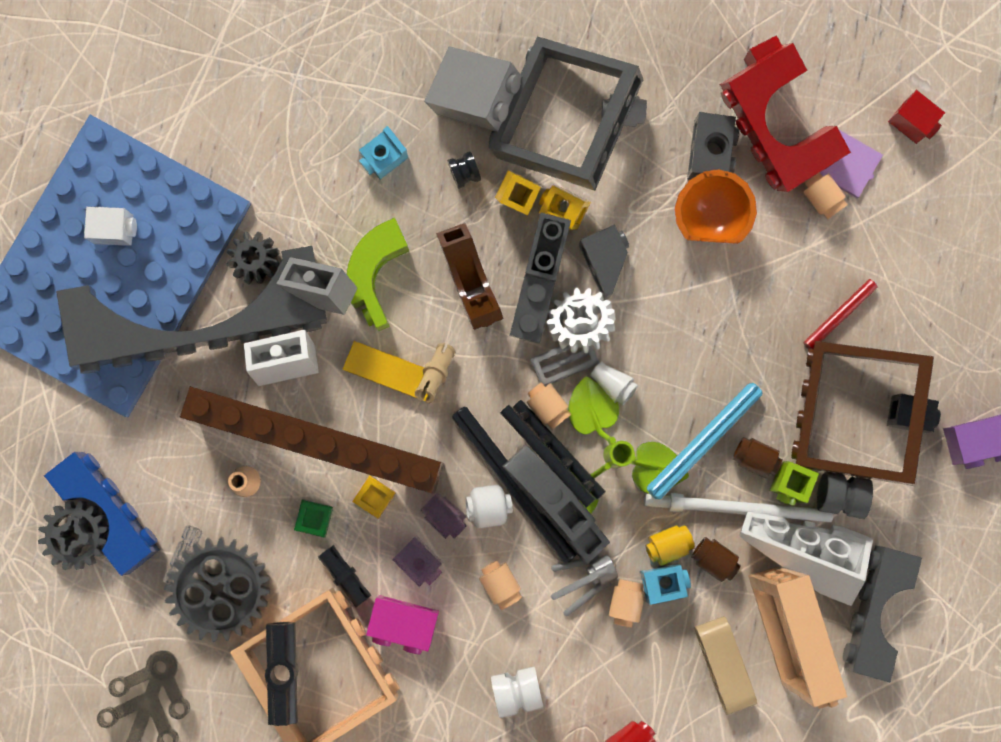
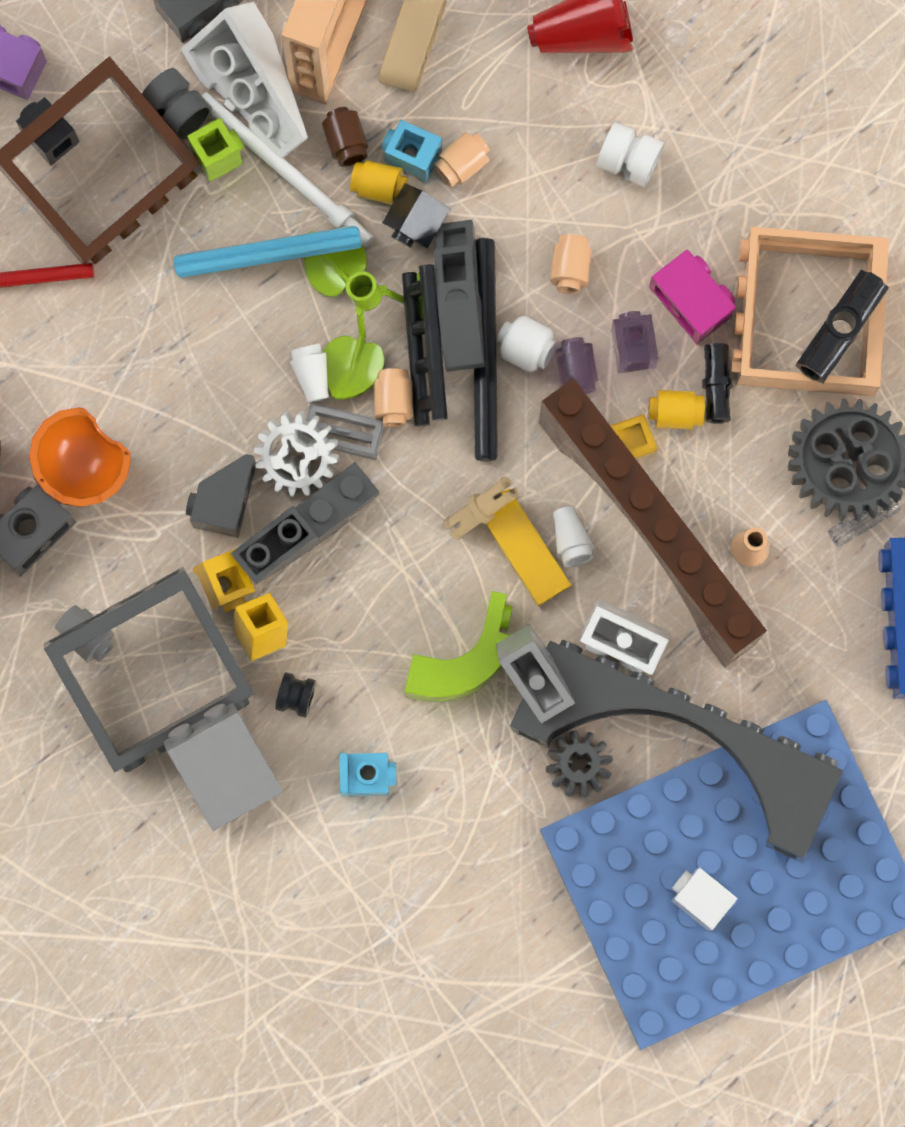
camera: 140 degrees left, 5 degrees down
(313, 518) = (707, 462): green tile -> none
(357, 536) = (676, 409): none -> yellow brick
(365, 400) = (572, 540): none -> white cone
(469, 276) = (376, 575): reddish brown arch -> none
(600, 571) = (467, 203): light grey plant -> none
(626, 536) = (415, 217): none -> brick
(757, 457) = (229, 200): reddish brown brick -> none

